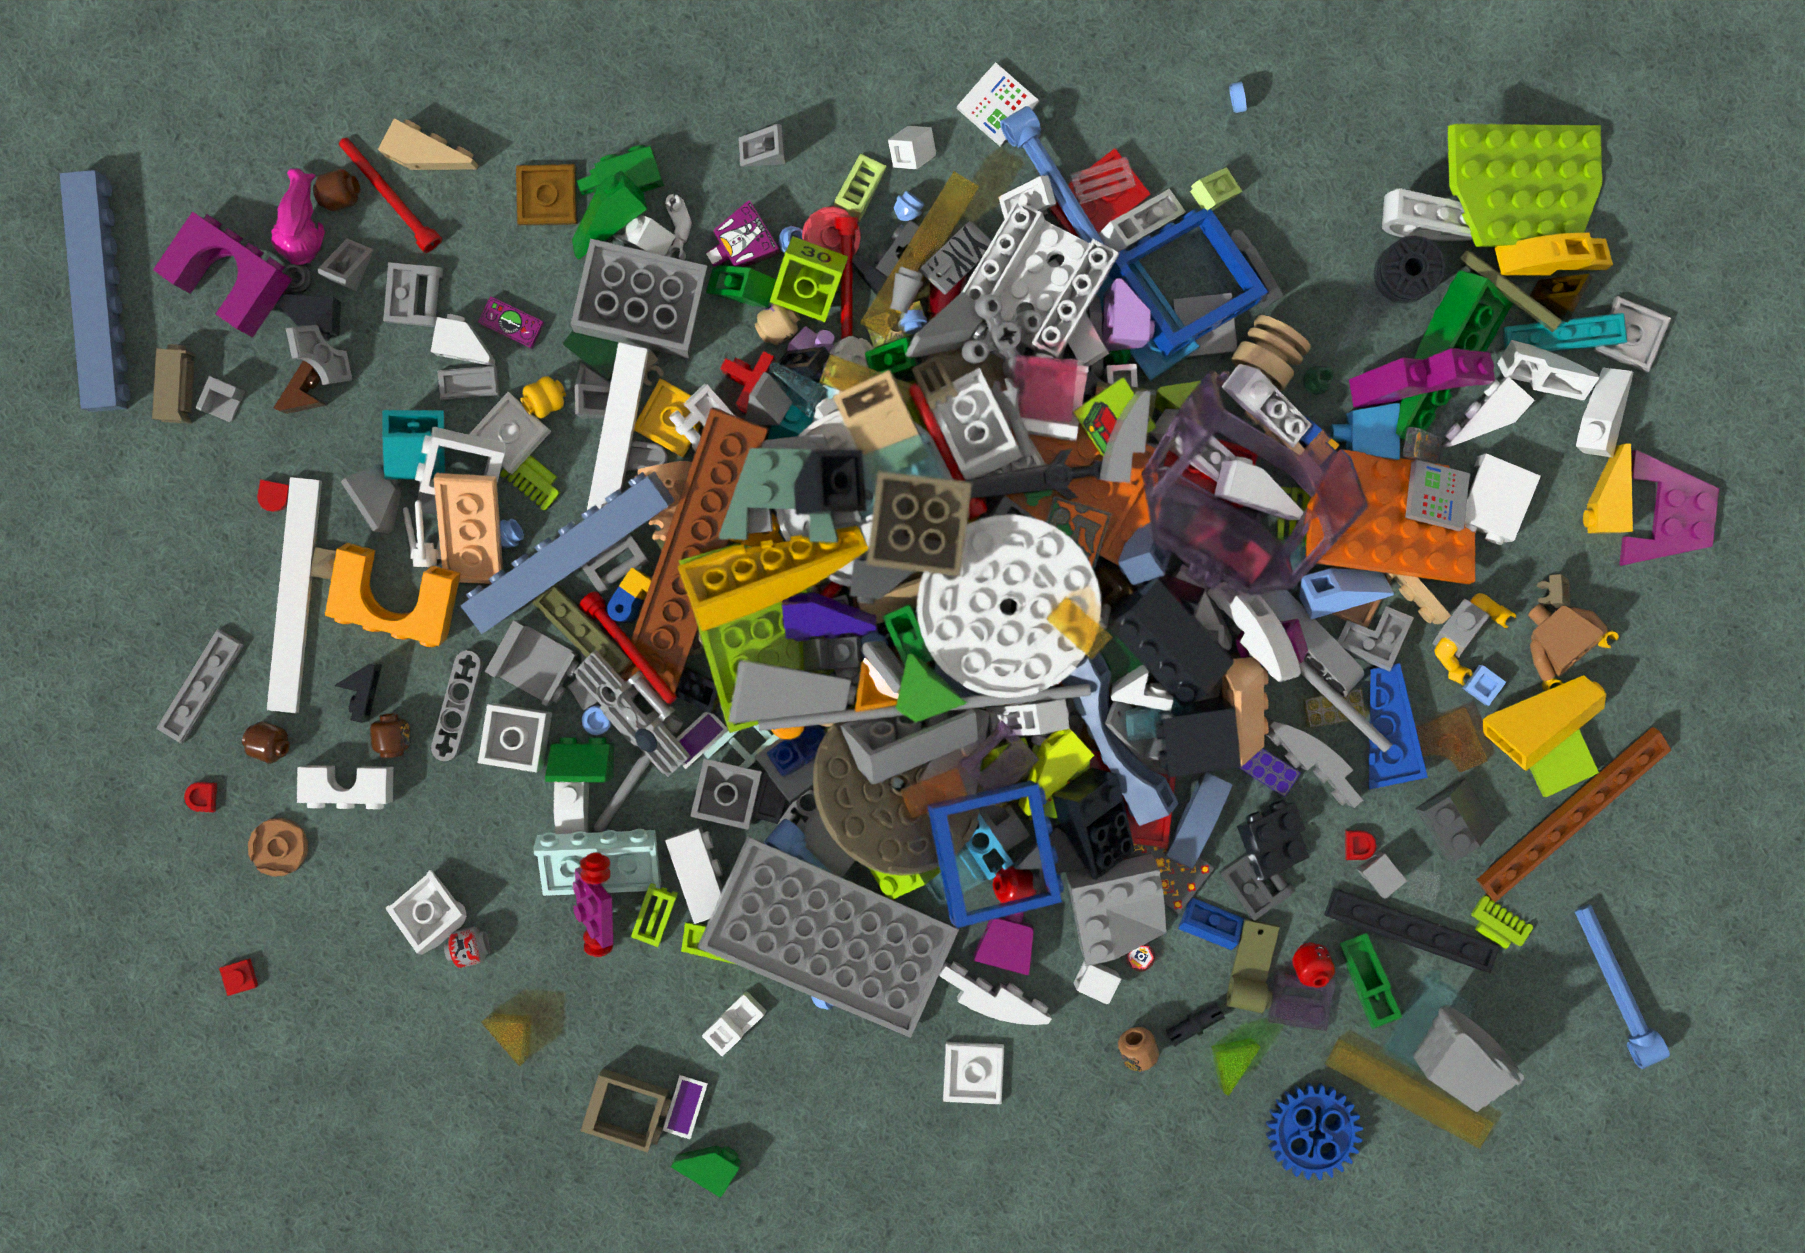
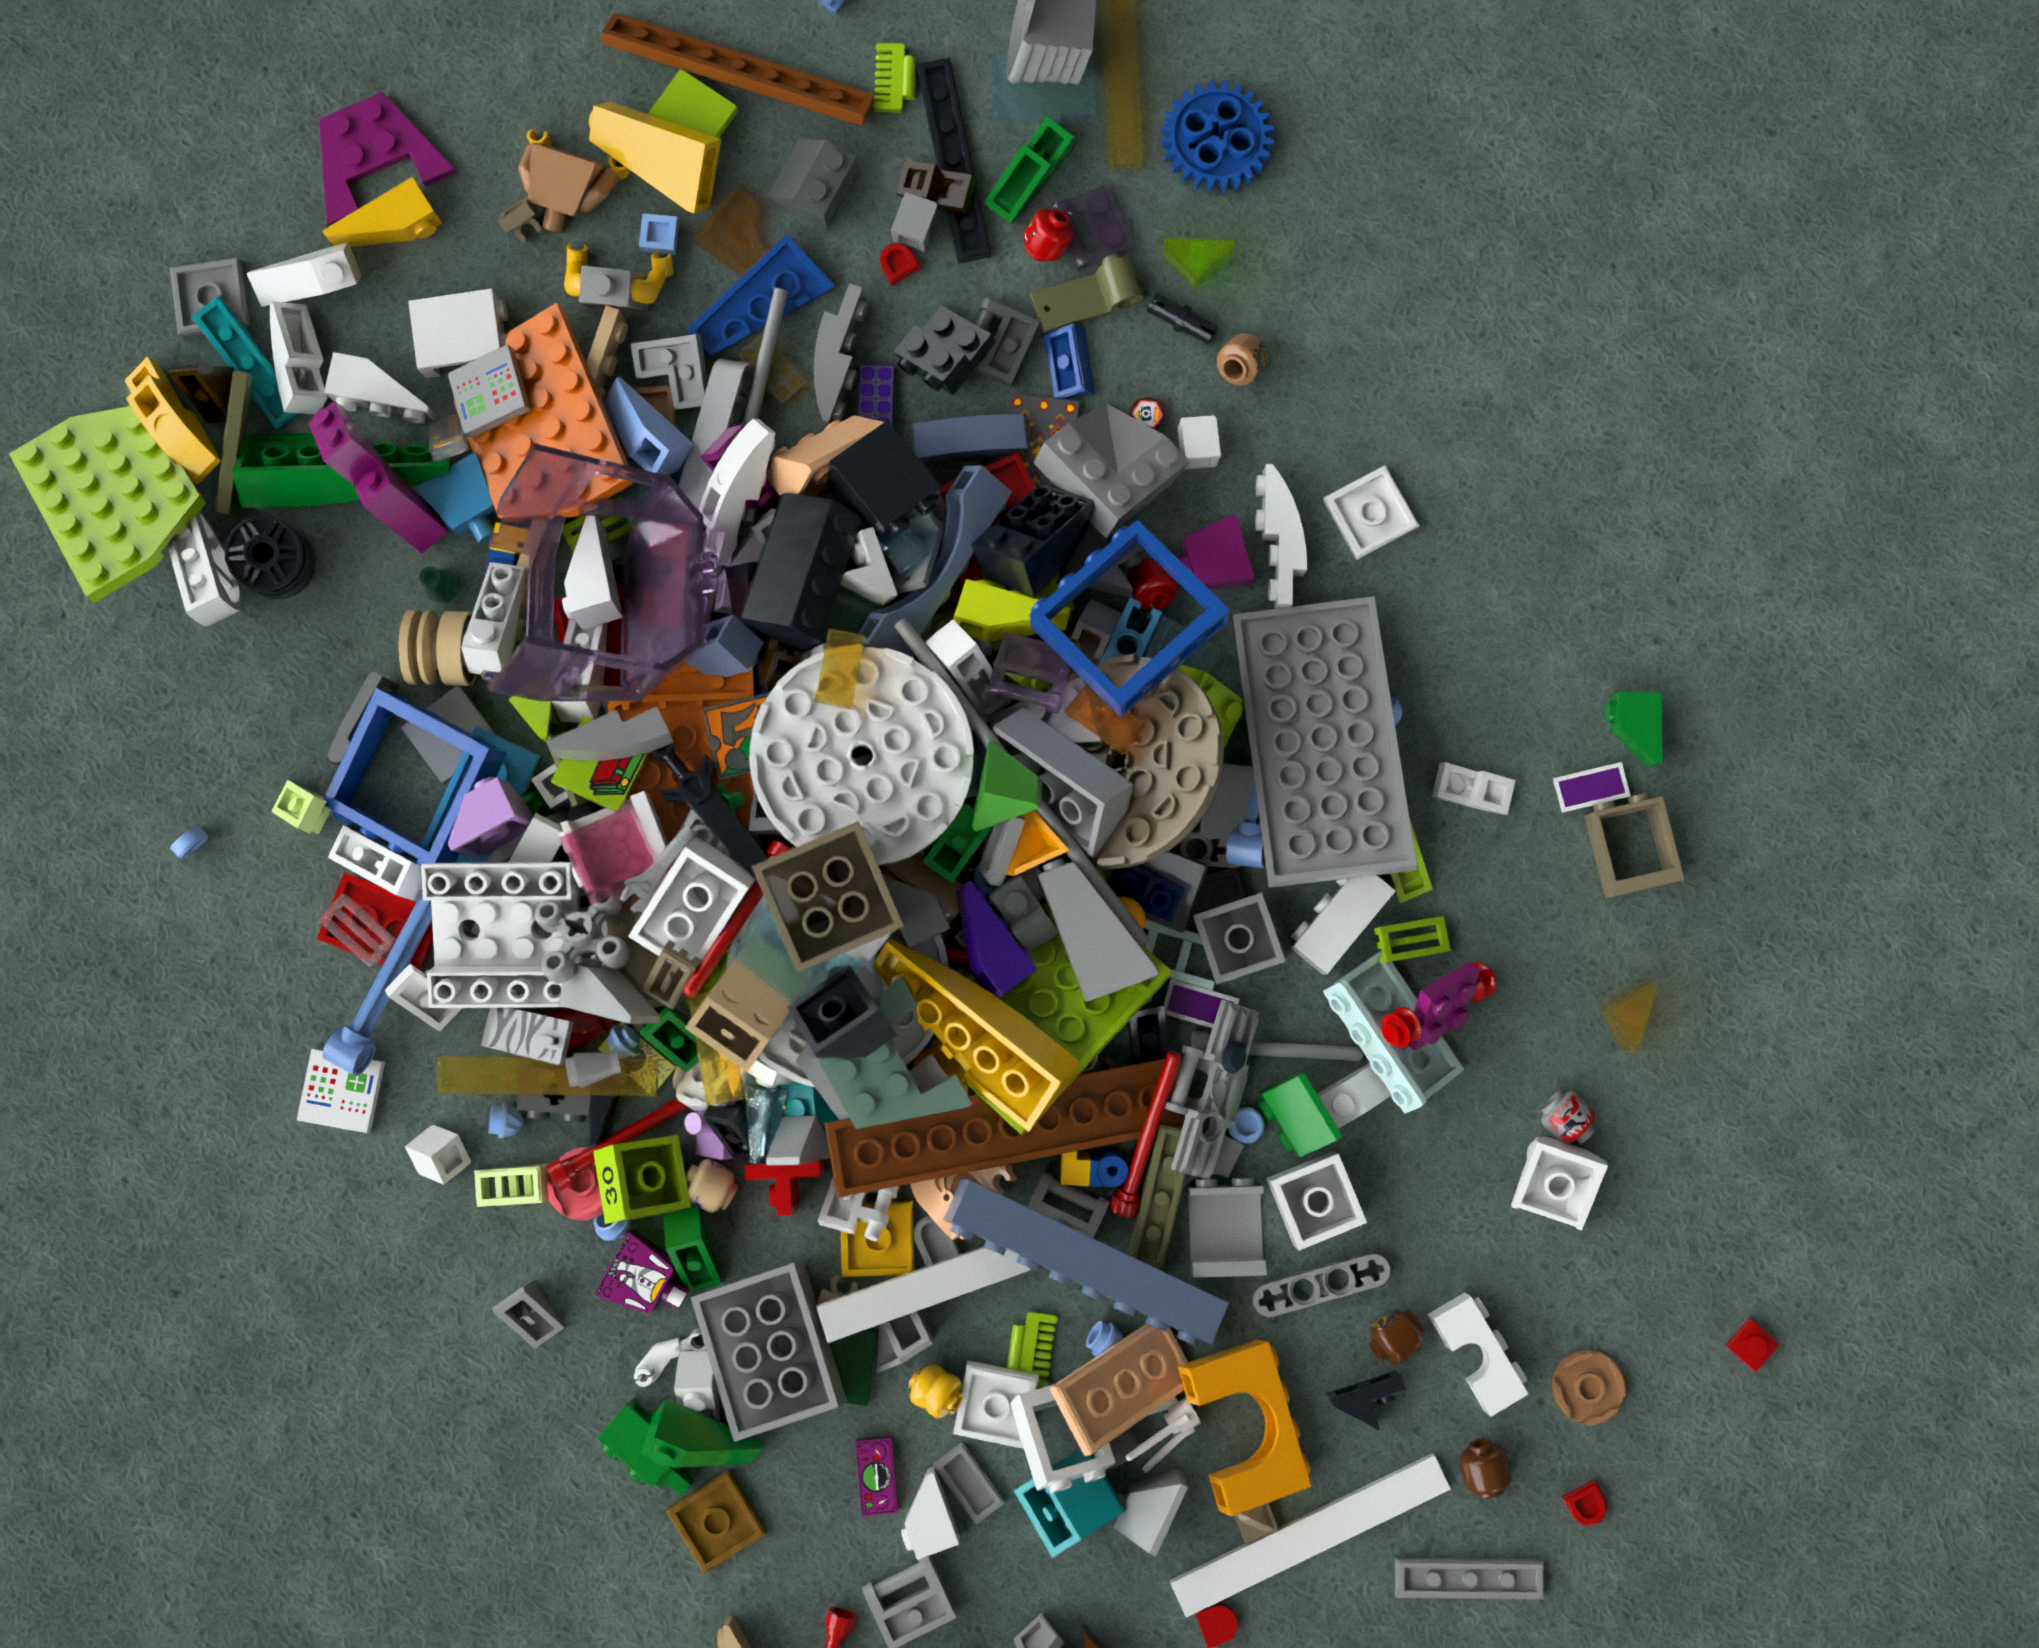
camera: 120 degrees left, 5 degrees down
(1396, 908) = (946, 188): none -> dark brown slope

